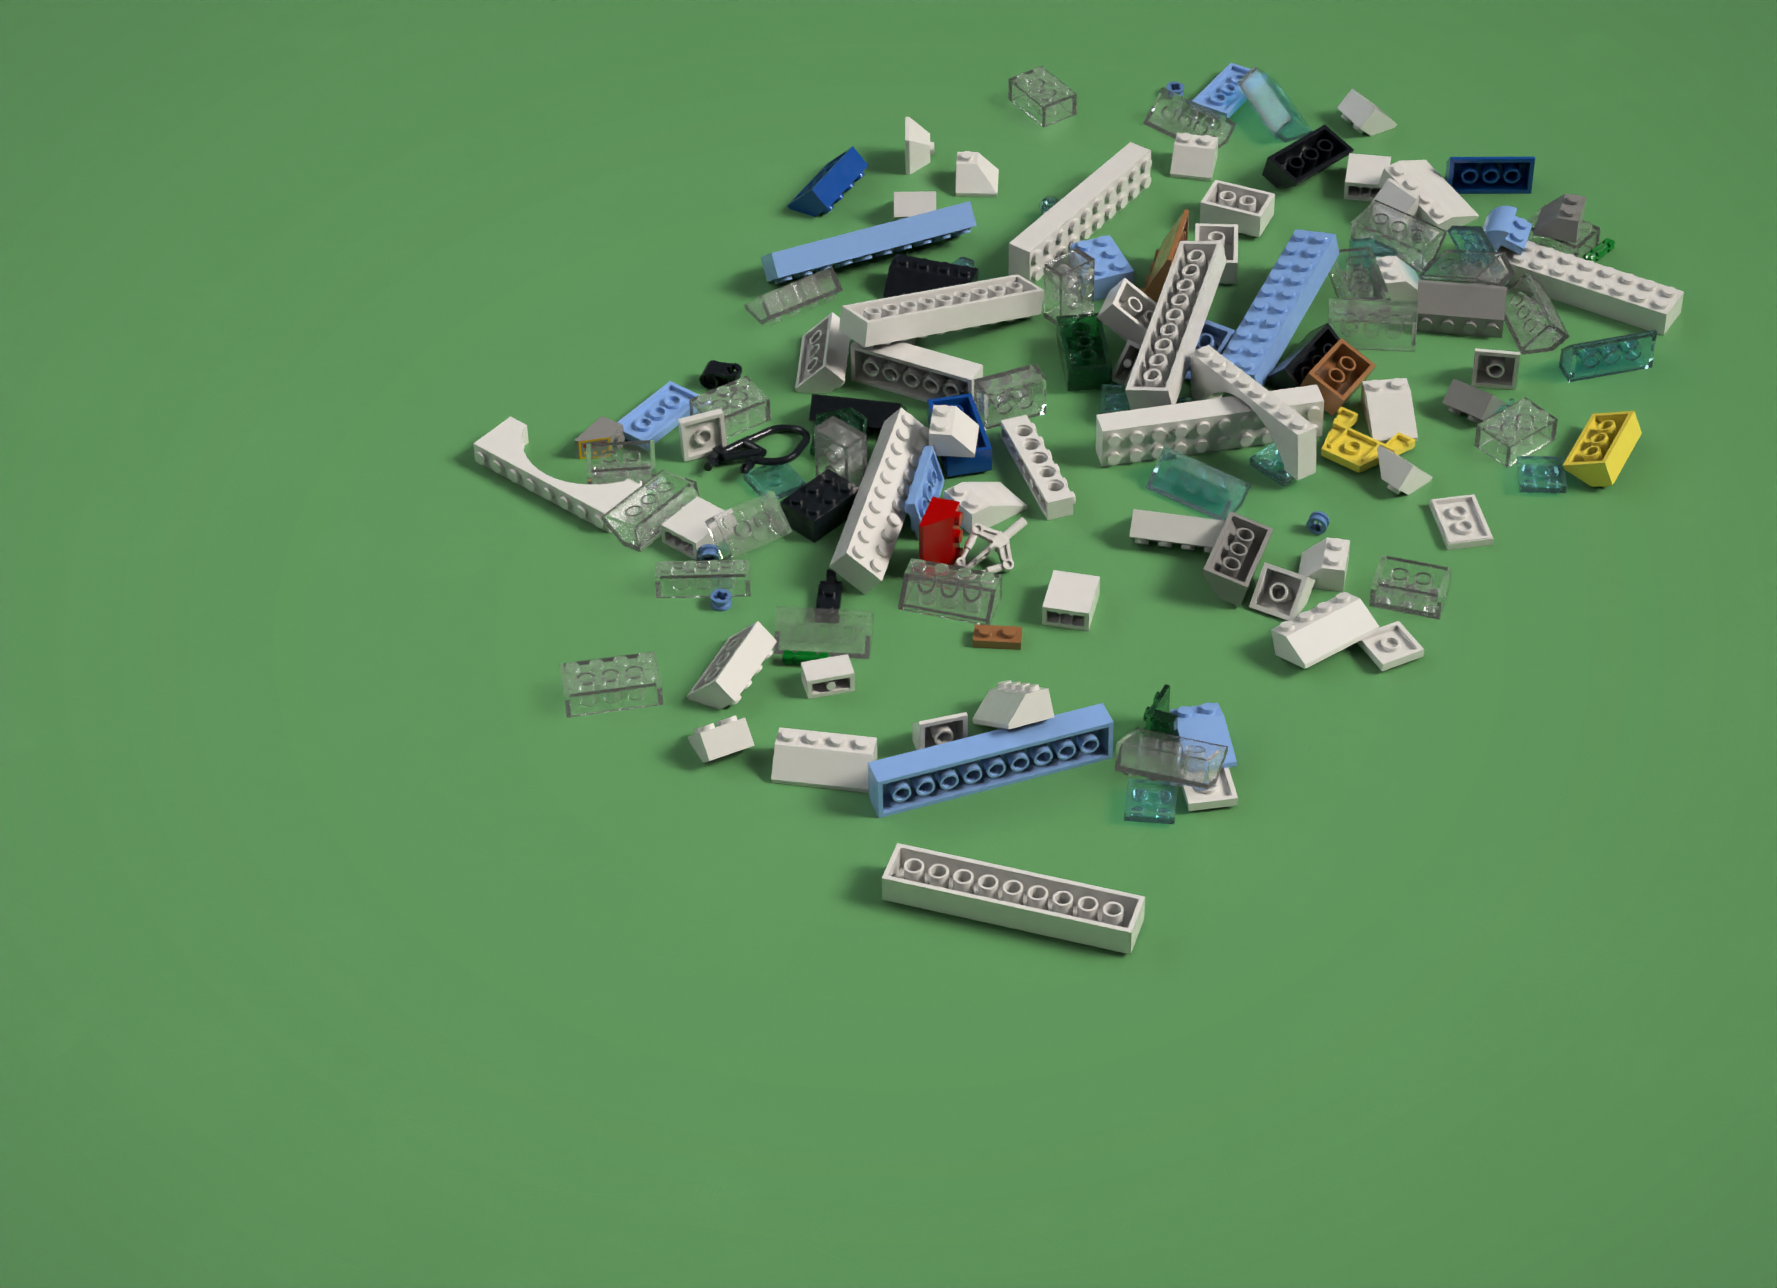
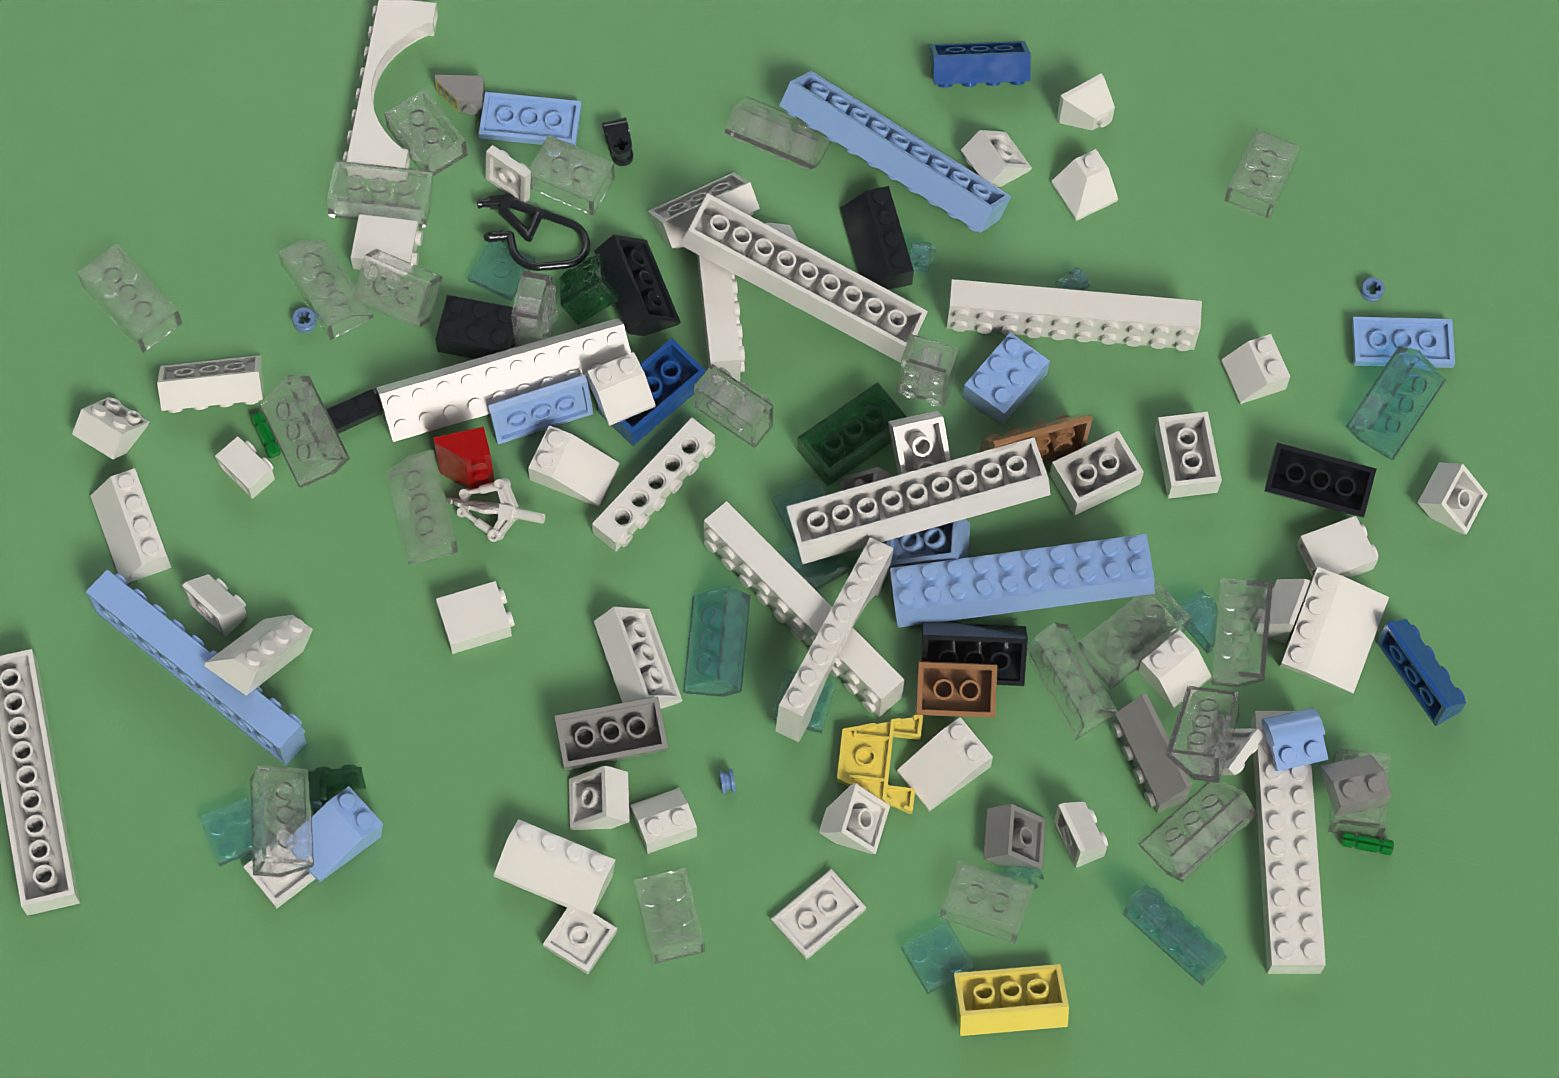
camera: 55 degrees right, 25 degrees up
(708, 552) = (352, 273): medium blue bush -> none
(997, 637) = (392, 580): medium nougat plate -> none
(1178, 114) = (1317, 333): clear slope -> none
(1470, 238) = (1236, 720): clear light blue plate -> none

